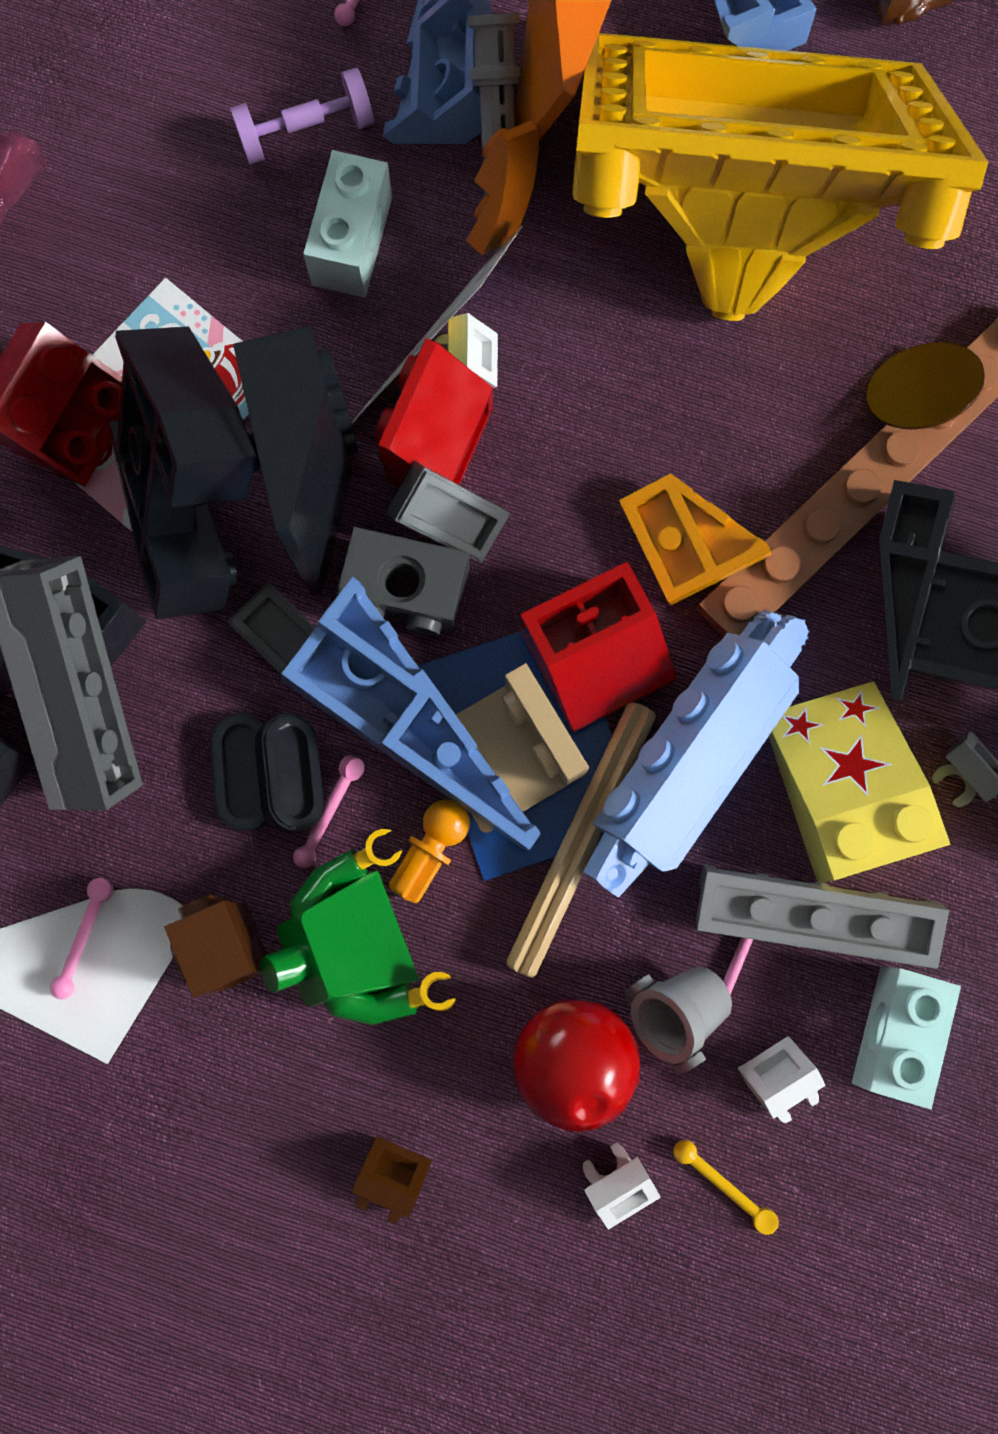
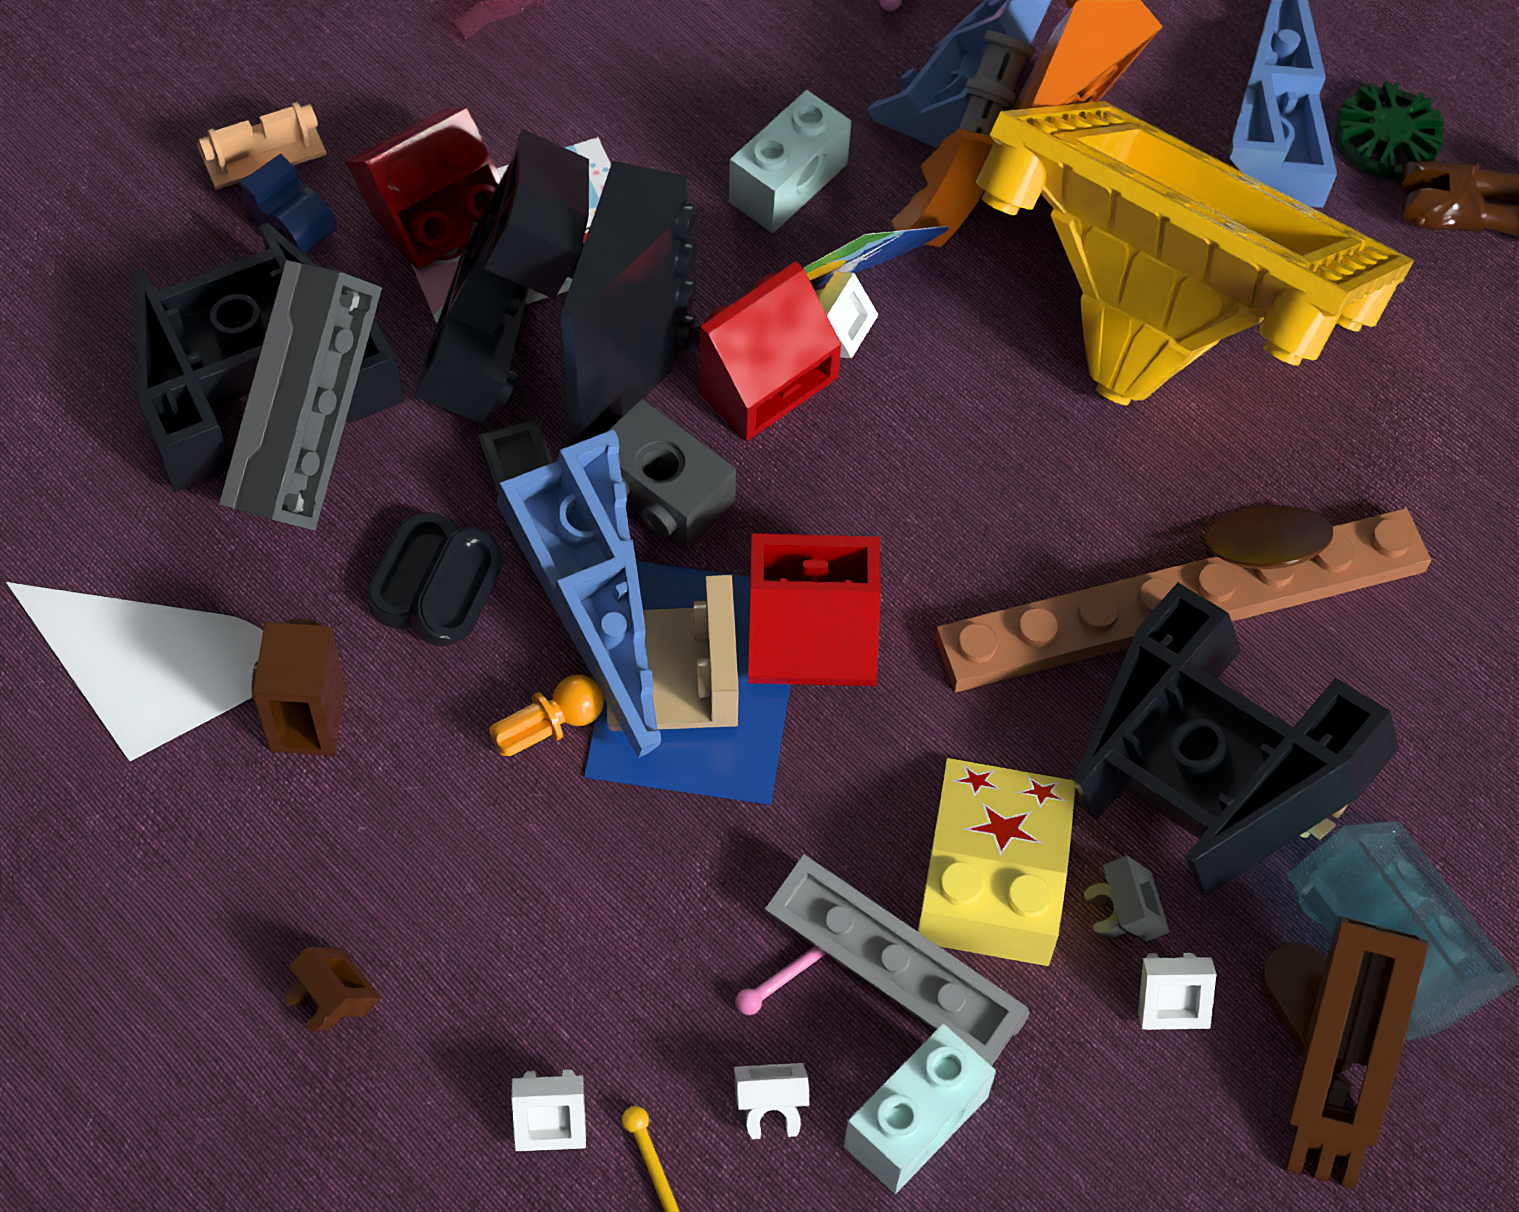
camera: 25 degrees right, 20 degrees down
(99, 891) = (217, 608): bright pink hinge -> none
(304, 115) = (799, 59): lavender wheel -> none
(348, 945) = (421, 746): green torso -> none
(350, 769) = (515, 614): bright pink hinge -> none
(447, 512) = (737, 427): dark grey tile -> none
(576, 1065) = (572, 957): red piece -> none
(579, 842) = (698, 779): tan axle -> none
(679, 1014) = (699, 970): light grey piece -> none
(688, 538) = (958, 563): light orange wing -> none
(698, 752) = (856, 746): light blue hinge -> none

